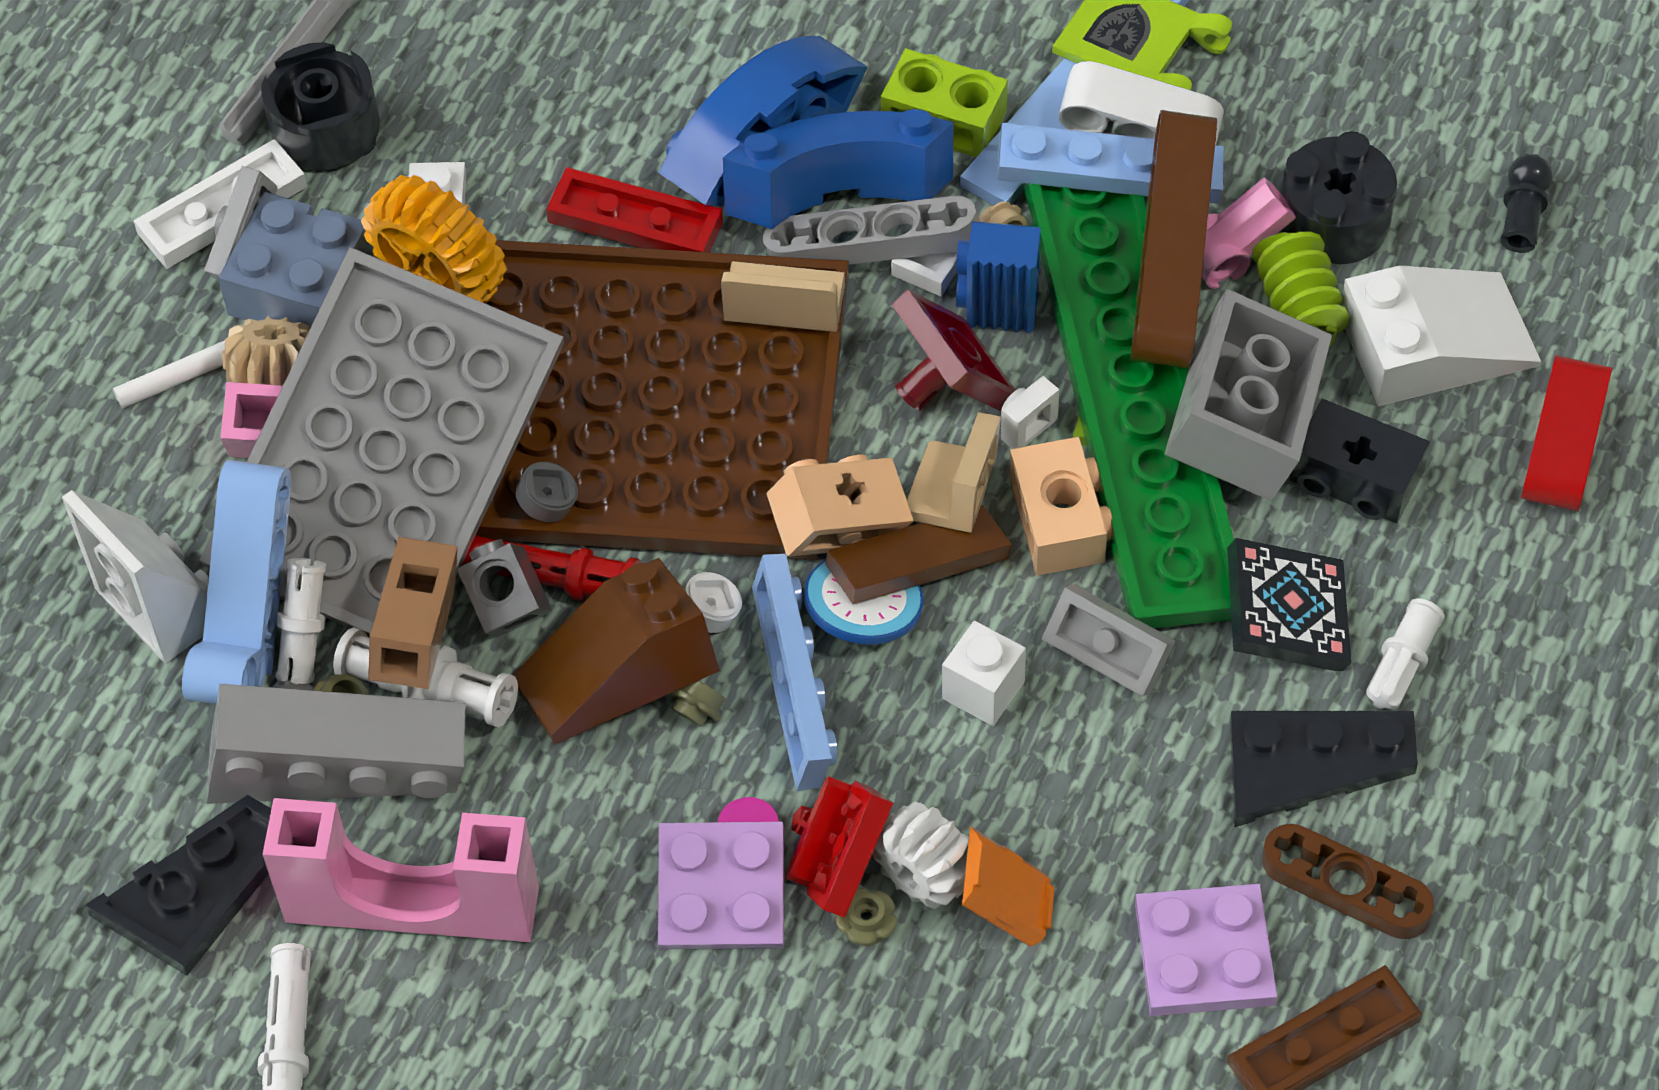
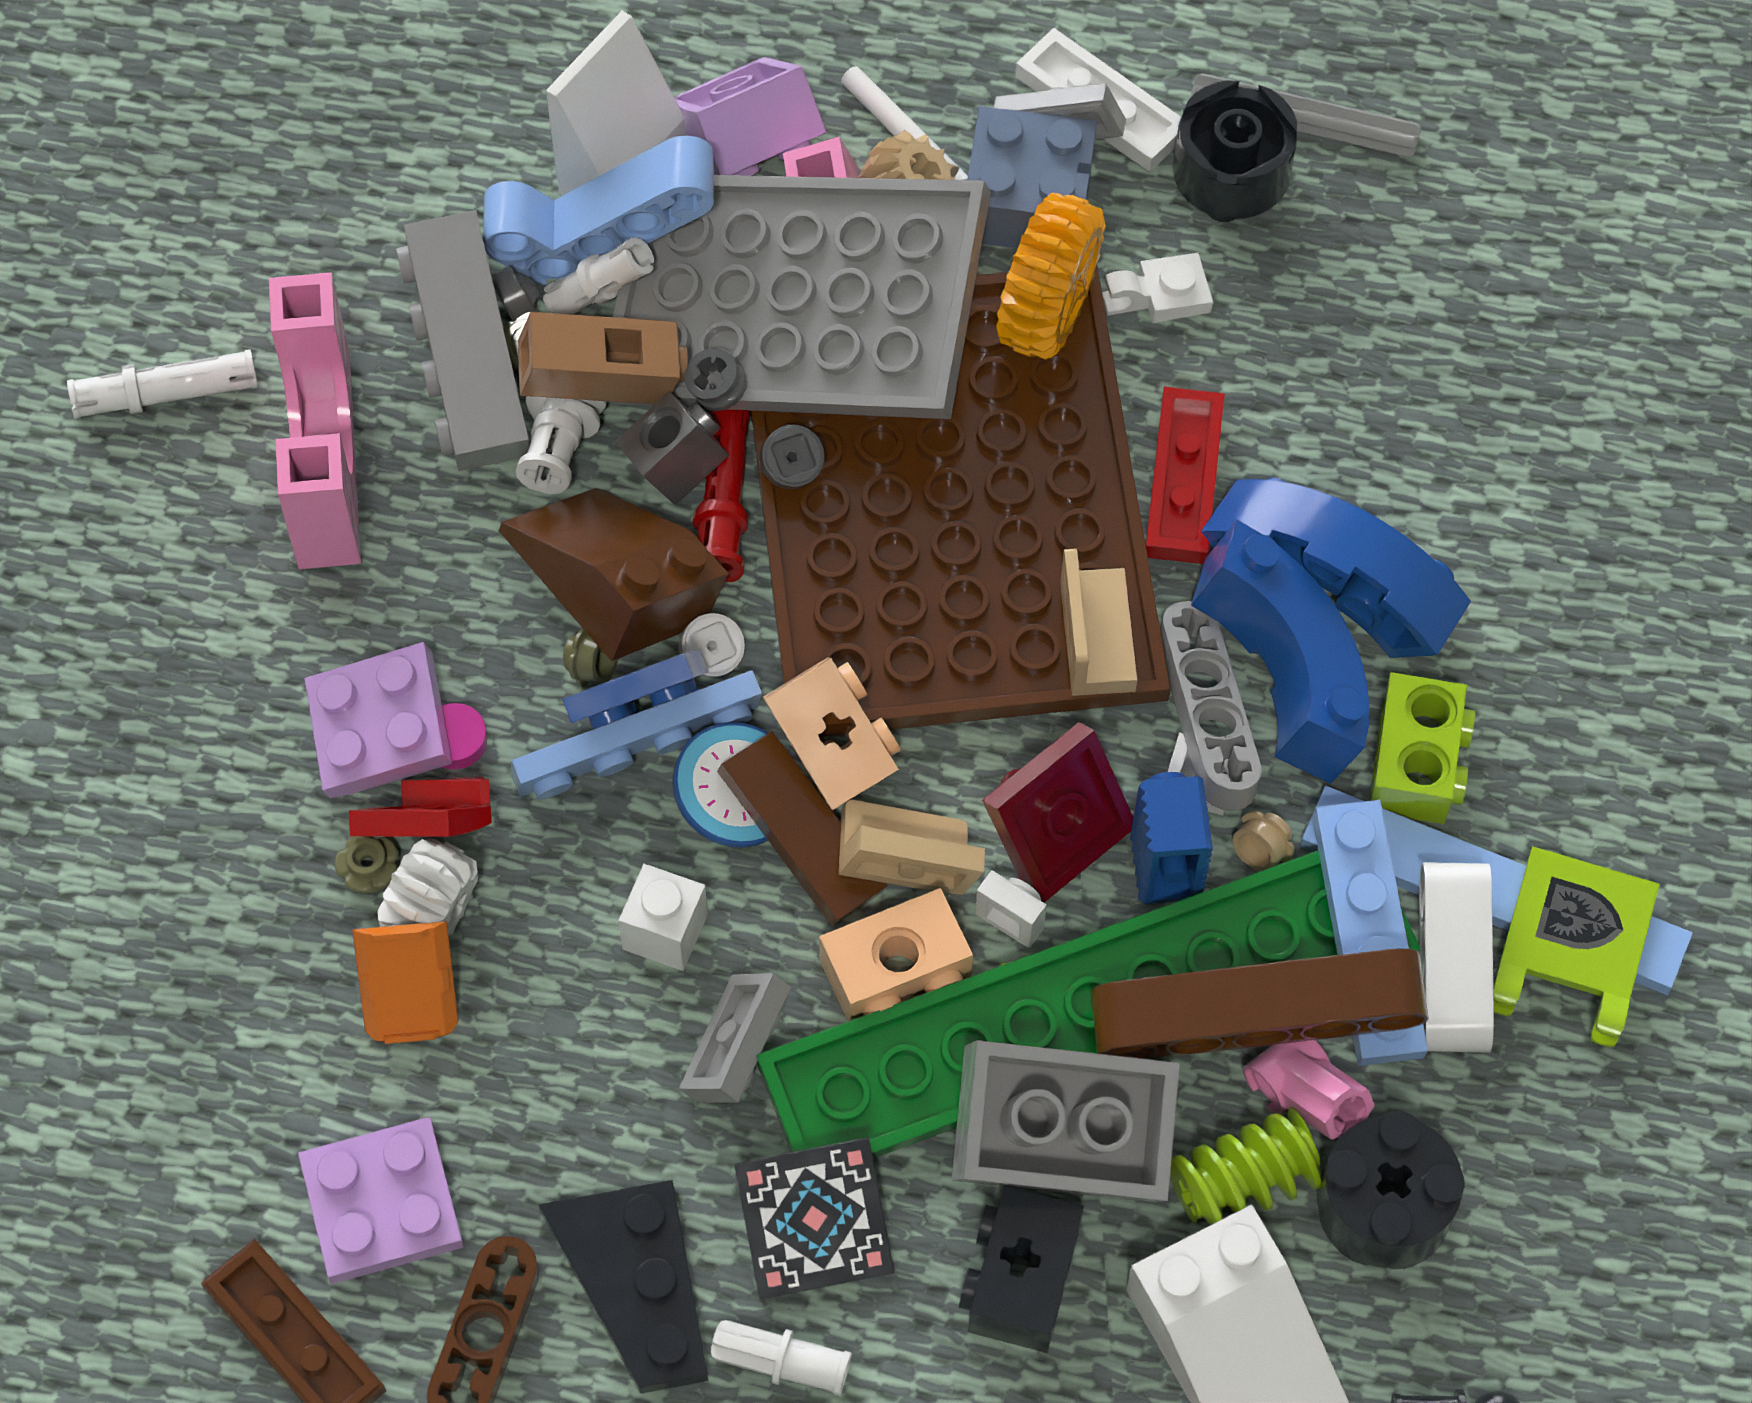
camera: 75 degrees right, 5 degrees up
(148, 469) = (752, 114): none -> lavender slope
(194, 892) = (287, 244): black wing -> none
(465, 514) = (731, 372): none -> dark grey bush
(760, 644) = (616, 697): none -> blue plate

